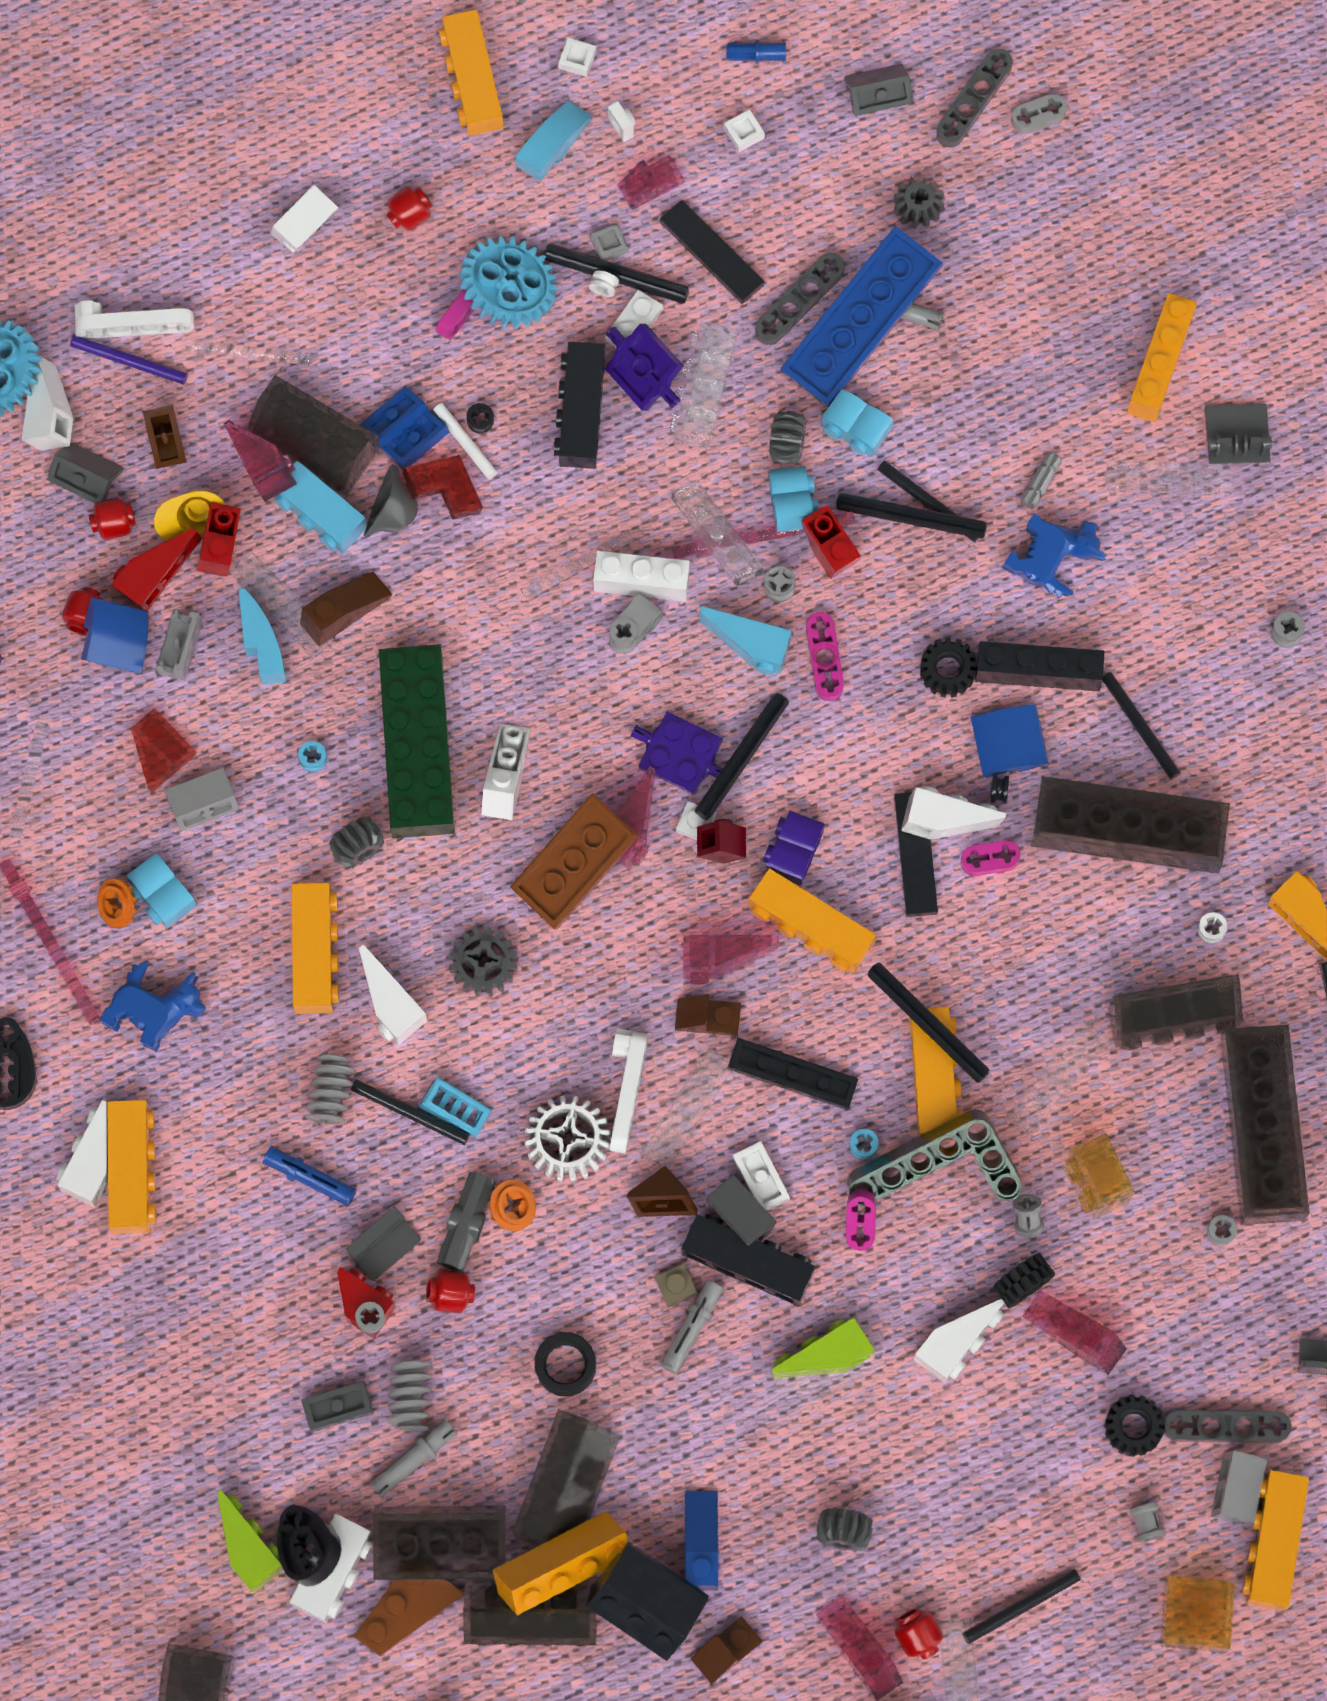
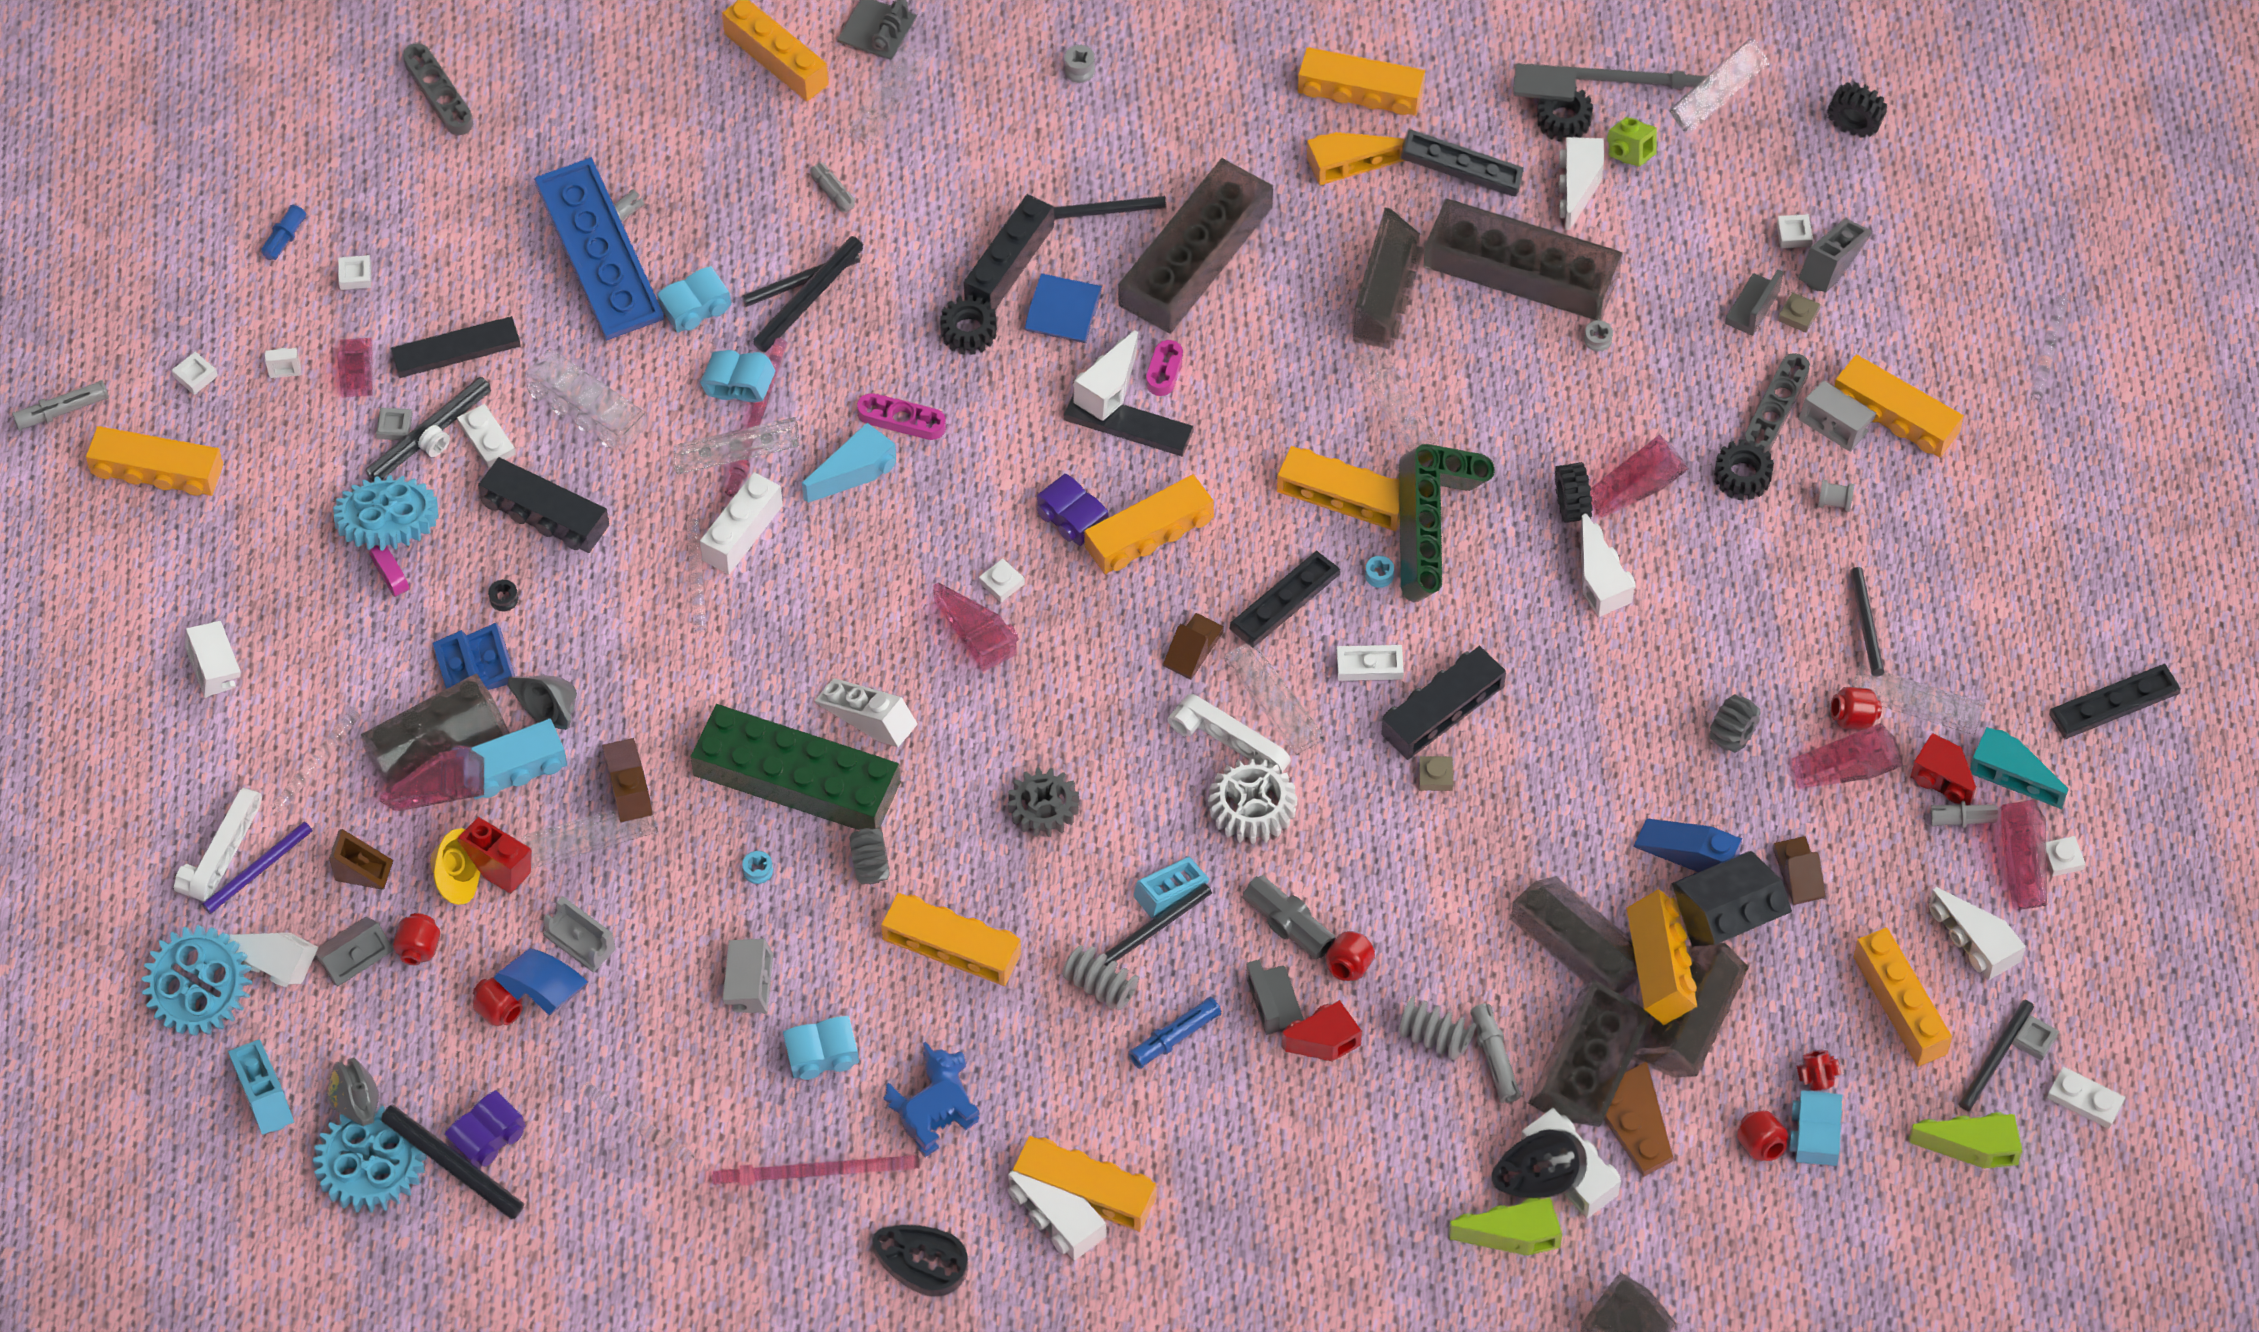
camera: 65 degrees left, 15 degrees down
(110, 909) = (813, 1103): orange gear -> none
(152, 571) = (493, 930): red slope -> none
(160, 749) = (673, 995): clear red wing -> none
(261, 640) = (615, 861): medium azure slope -> none
(337, 1406) = (1413, 1097): dark grey plate -> none
(370, 1327) = (1347, 1032): light grey bush -> none
(394, 1007) = (1039, 894): white slope -> none
(409, 208) = (257, 566): red head -> none
(448, 478) = (550, 640): clear red plate -> none
(465, 441) = (519, 617): white bar -> none
(524, 1208) = (1301, 872): orange gear -> none
(552, 140) = (266, 425): medium azure slope -> none
(565, 1339) = (1467, 912): black tyre -> none
(574, 861) = (989, 683): dark orange tile -> none
(636, 620) = (783, 551): light grey piece -> none
(643, 367) = (540, 436): dark purple plate -> none
(661, 1196) = (1350, 740): reddish brown slope -> none
(680, 752) = (926, 561): dark purple plate -> none
(693, 1324) = (1475, 765): light grey pin -> none
(717, 955) = (1139, 614): clear pink slope -> none
(721, 841) = (1035, 560): dark red brick -> none
(741, 756) = (962, 514): black axle -> none
(741, 1211) = (1395, 683): dark grey panel -> none
(779, 576) = (810, 413): light grey wheel -> none
(787, 437) = (677, 353): dark grey gear -> none
(799, 298) = (546, 297): dark grey beam -> none
(829, 542) = (801, 360): red slope -> none
(833, 1353) = (1564, 669): lime slope -> none
(854, 1219) = (1454, 592): dark pink beam -> none
(879, 89) = (383, 153): dark grey panel -> none
(928, 1022) = (1299, 463): black axle -> none
(930, 205) = (512, 167): dark grey gear -> none
(999, 789) = (1105, 332): black bush -> none
(1028, 1215) = (1513, 468): light grey bush -> none
(1040, 120) = (490, 48): light grey beam -> none
(1049, 548) = (904, 205): blue animal -> none
(1098, 1176) = (1508, 395): clear yellow brick -> none
(1197, 1614) = (1938, 487): clear yellow brick -> none
(1208, 937) = (1320, 239): white bush -> none

